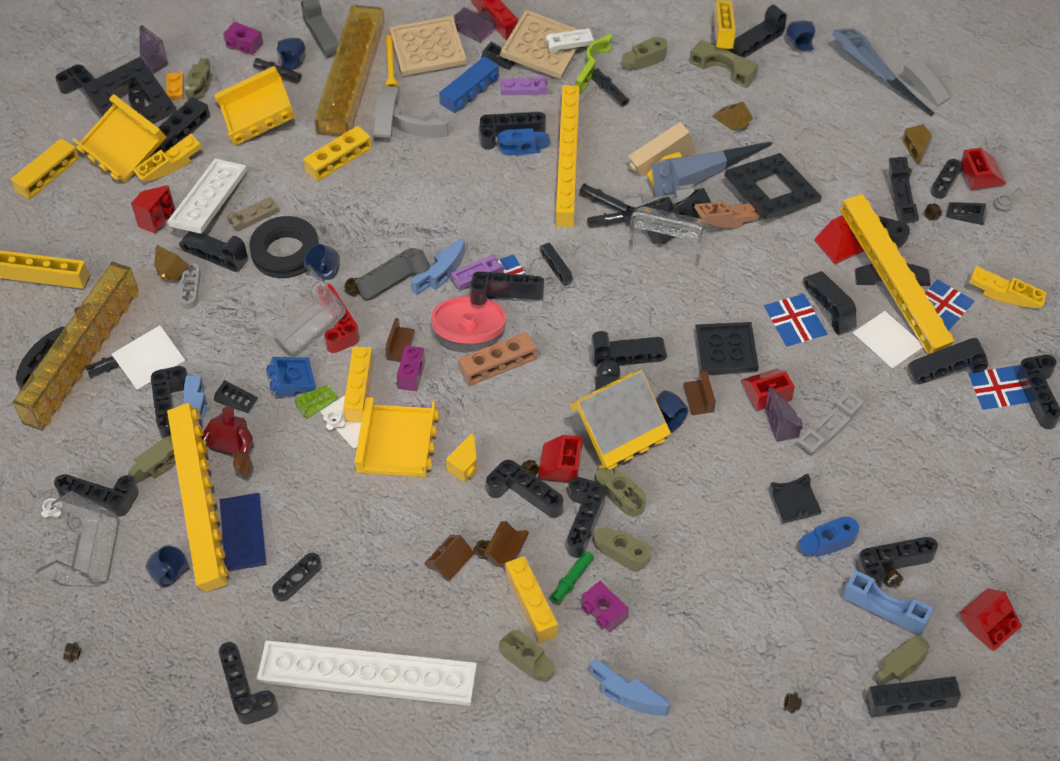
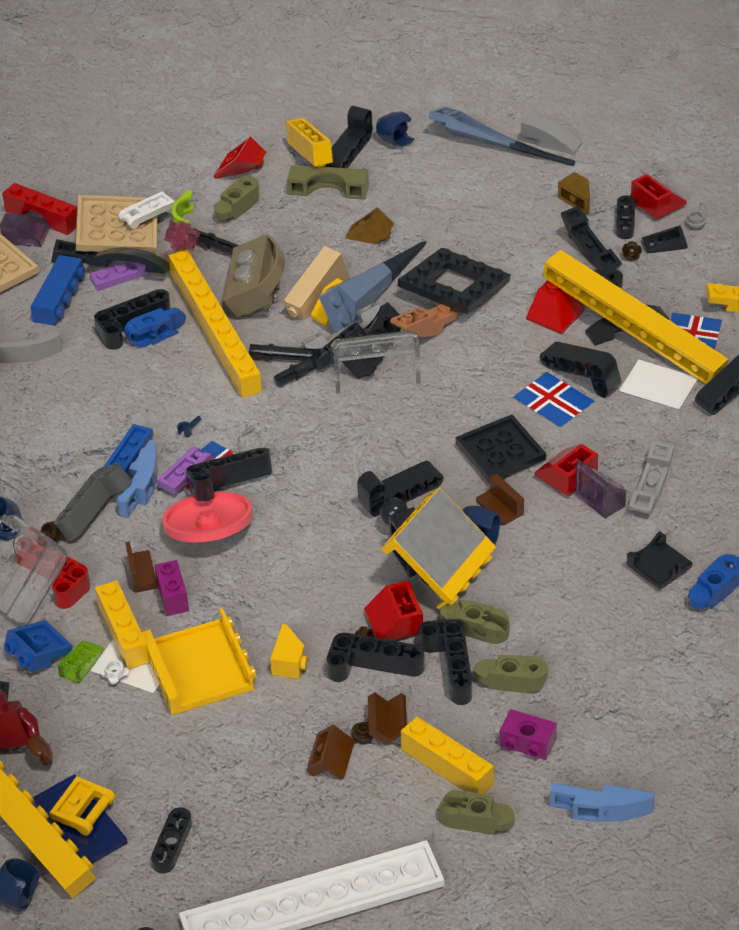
camera: 25 degrees left, 10 degrees down
(244, 517) = (75, 802): none -> yellow plate
(446, 238) = (130, 446): none -> blue plate
(497, 359) = (262, 545): nougat brick -> none
(498, 237) = (186, 427): none -> dark blue hand
(550, 85) = (153, 262): none -> black slope
(556, 263) = (277, 436): black beam -> none
(567, 583) = (474, 729): green pin -> none
(578, 73) = (181, 236): none -> clear pink brick
(616, 126) = (254, 276): none -> dark tan piece
(668, 20) = (241, 159): none -> red slope

